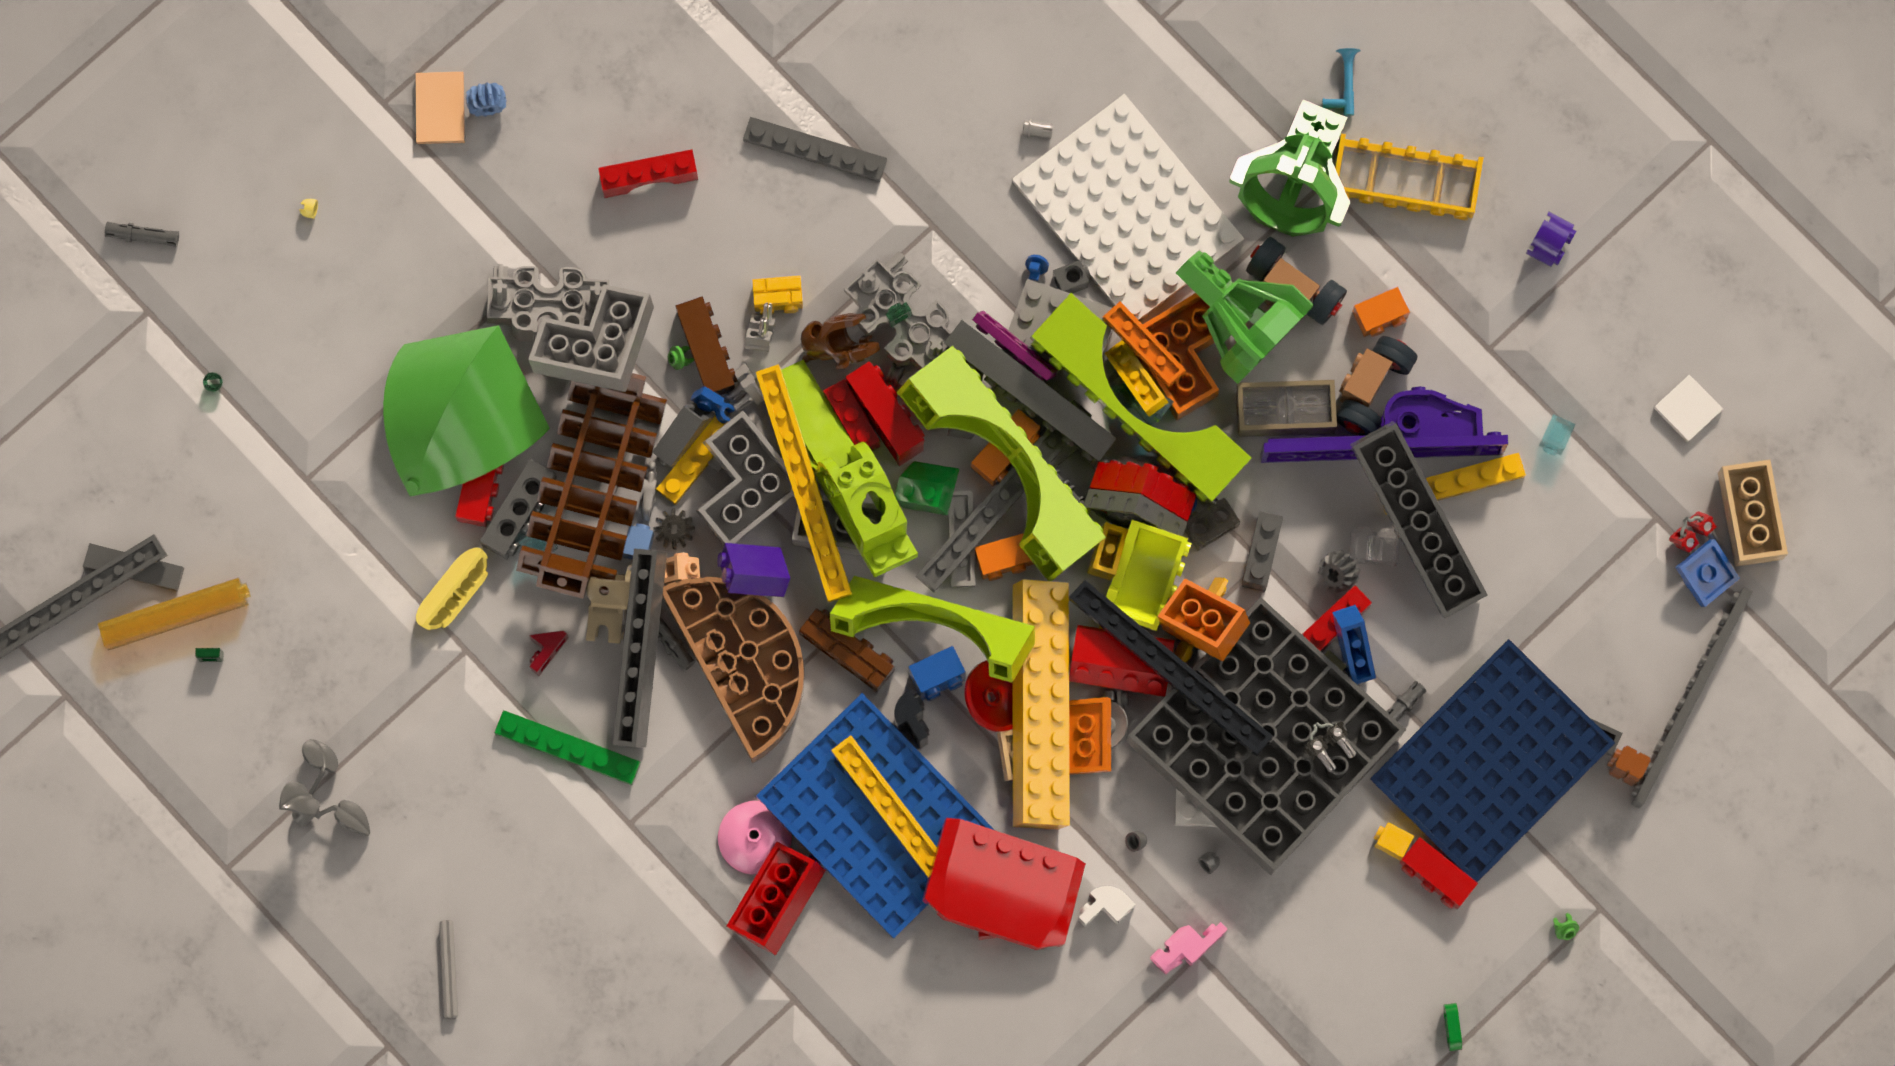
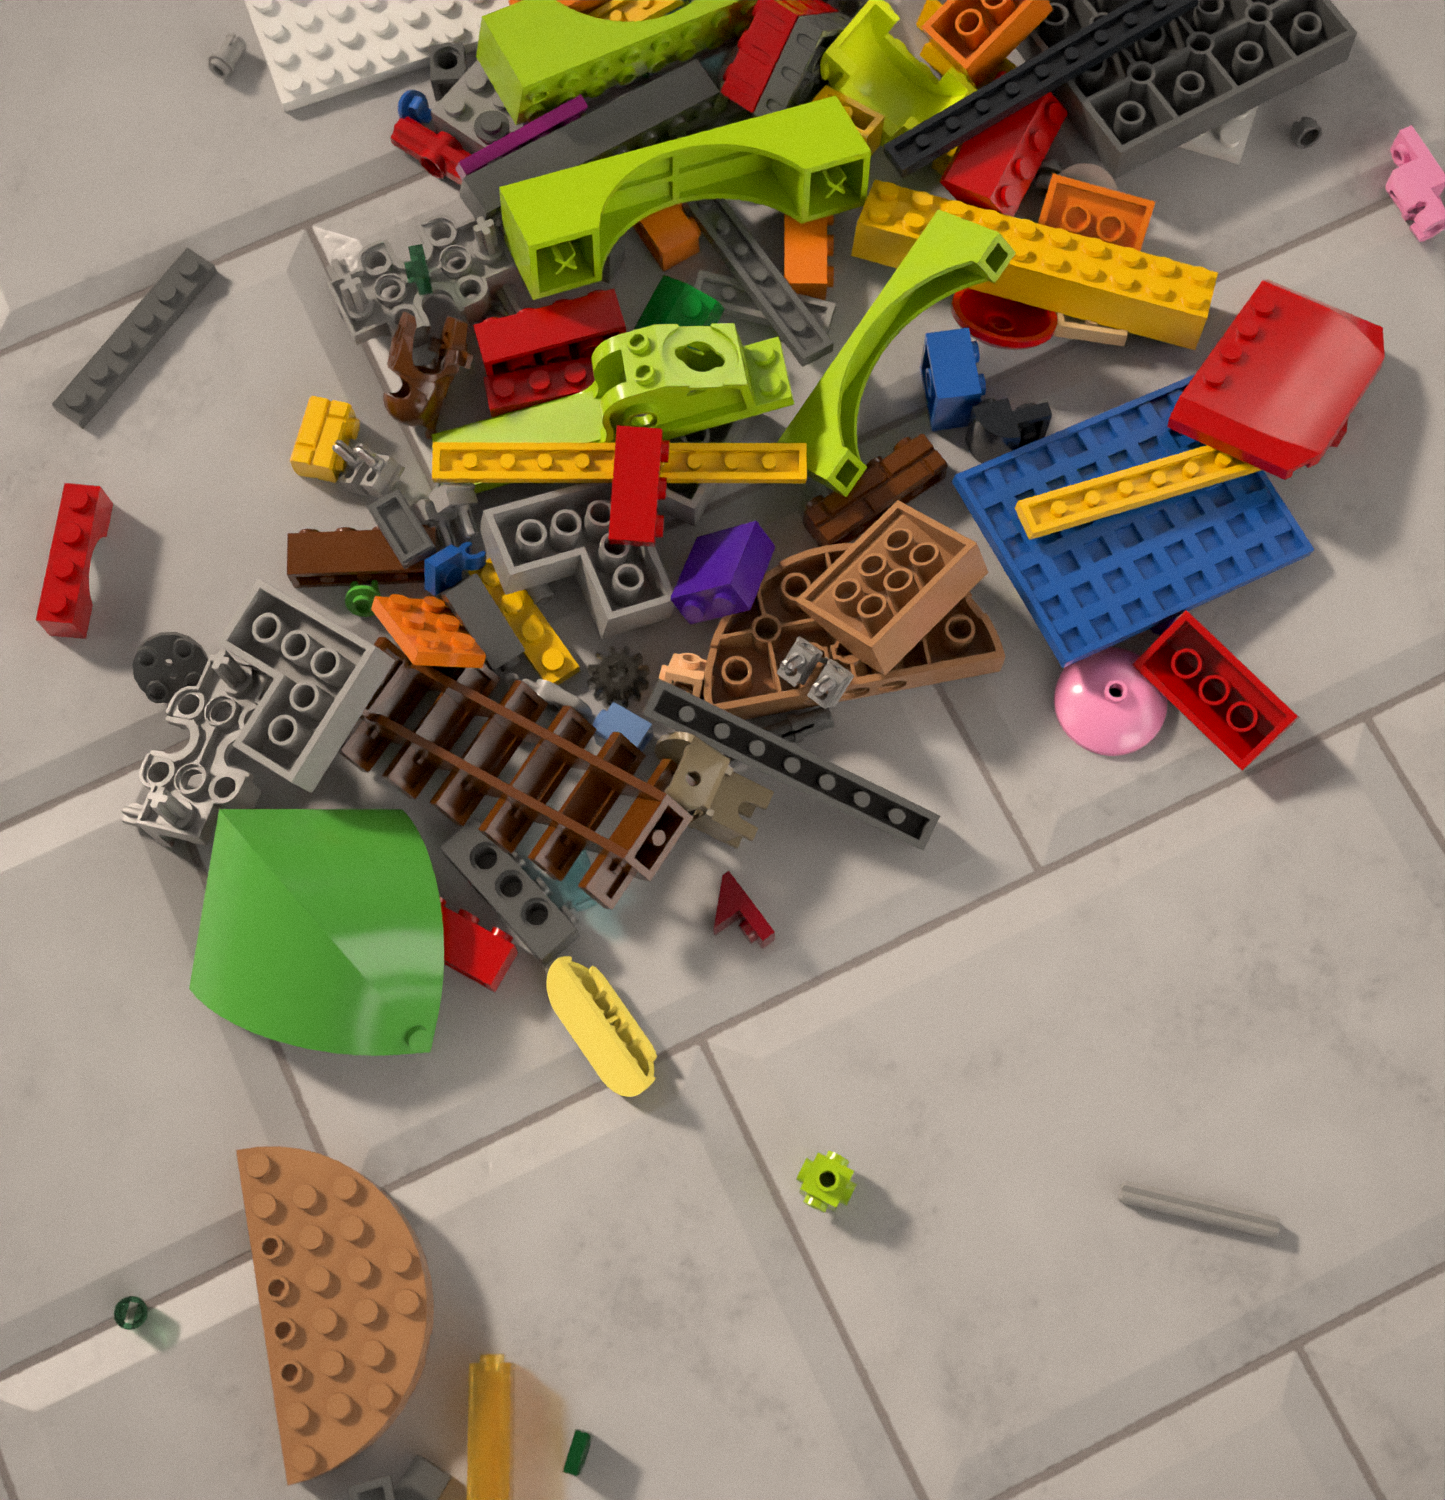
camera: 70 degrees left, 5 degrees down
(254, 493) = (338, 1303): none -> medium nougat brick
(305, 807) = (885, 1362): dark grey plant -> none
(401, 755) = (826, 1197): none -> lime brick
(567, 747) = (898, 929): green plate -> none
(591, 264) = (153, 671): none -> dark grey plate
(658, 404) = (428, 632): none -> orange plate
(701, 633) = (832, 678): none -> light grey piece
(725, 364) = (401, 528): none -> dark grey tile
(772, 674) = (893, 585): none -> medium nougat slope
(785, 498) = (638, 486): none -> red brick
(1007, 291) = (435, 152): none -> red piece
(1020, 323) = (491, 126): none -> dark grey plate
(1107, 899) = (1331, 266): white brick -> none
(1135, 841) = (1253, 216): dark grey hinge -> none

